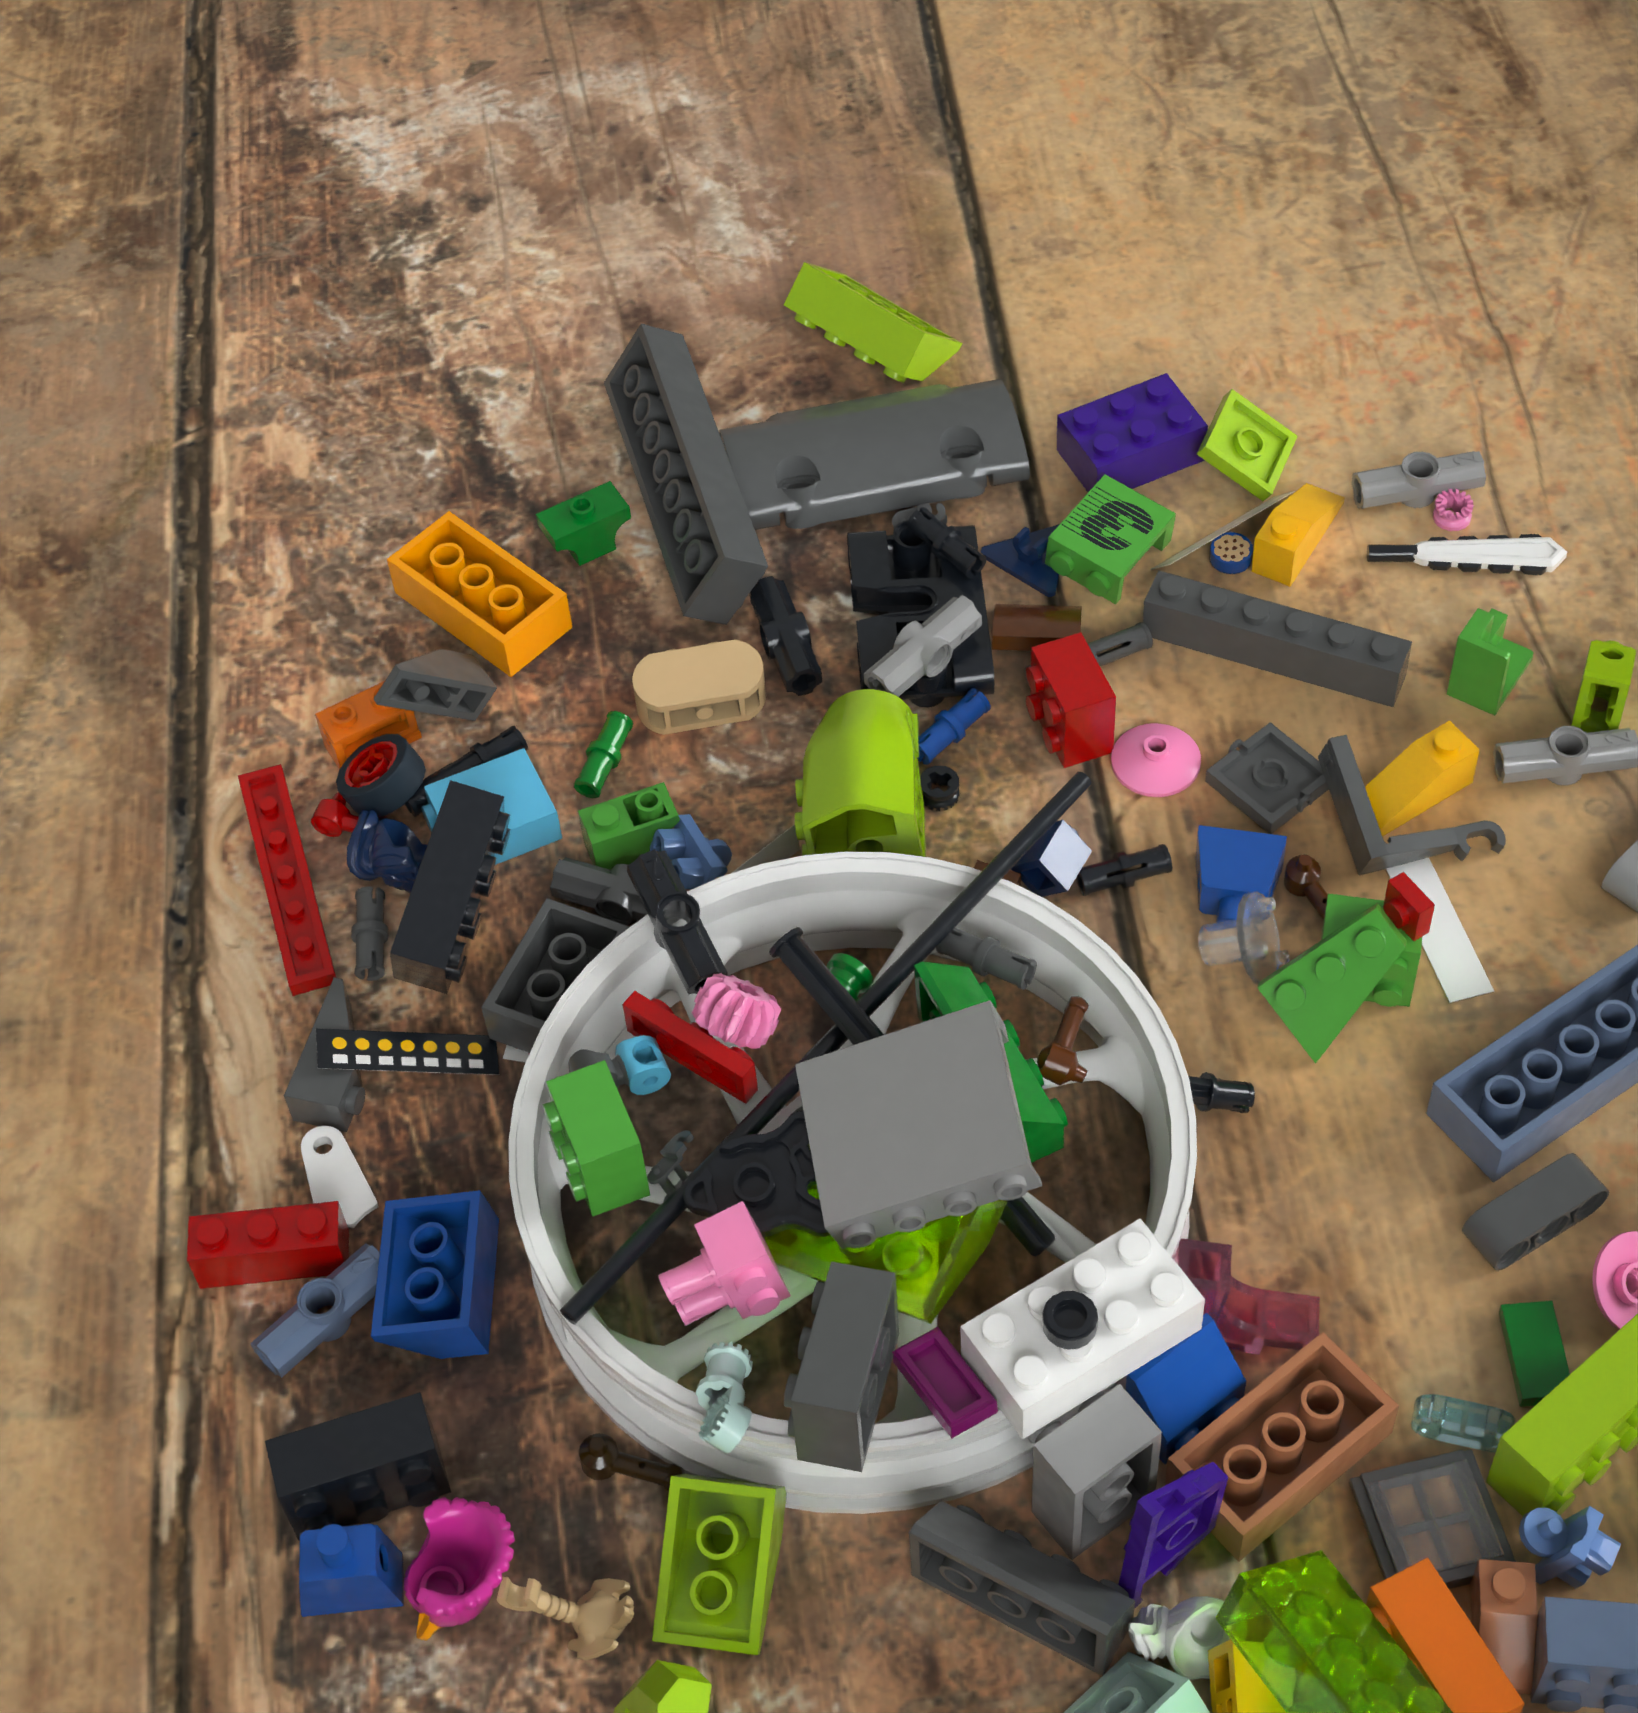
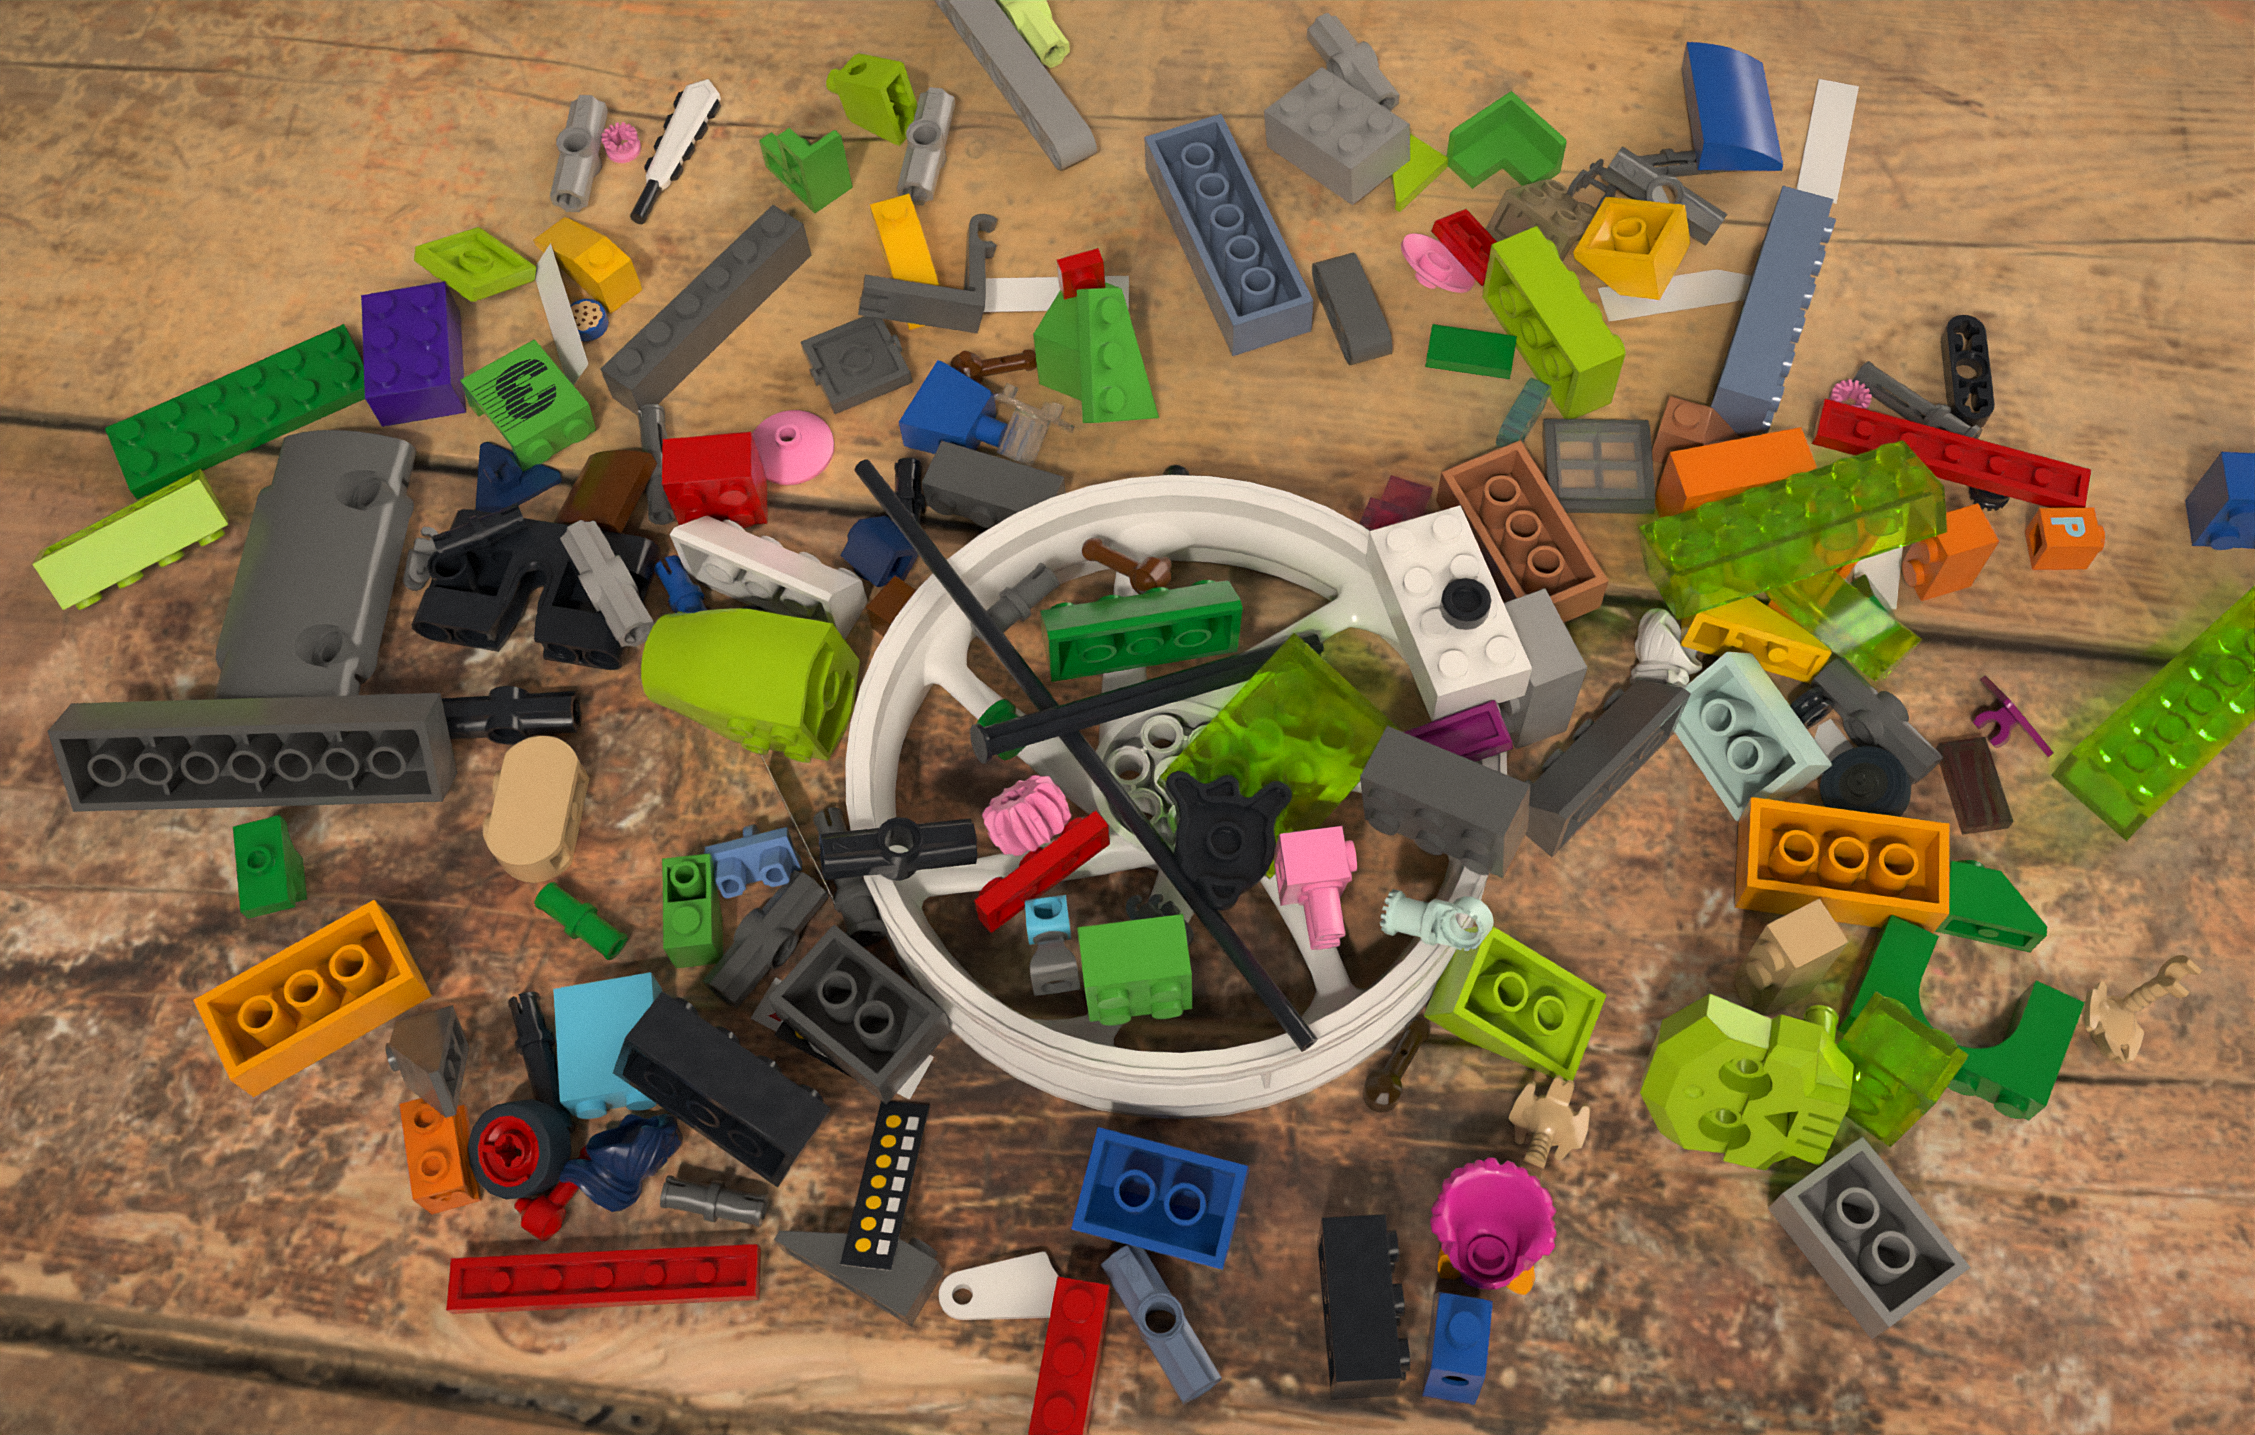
camera: 75 degrees left, 10 degrees up
(915, 1126) = (1228, 676): light grey panel -> none
(992, 772) = (767, 574): none -> white slope
(1024, 342) = (238, 411): none -> green plate
(1160, 932) = (984, 485): none -> dark grey brick
(1171, 1525) = (1602, 624): dark purple wing -> none
(1568, 1546) = (1654, 373): medium blue hips -> none

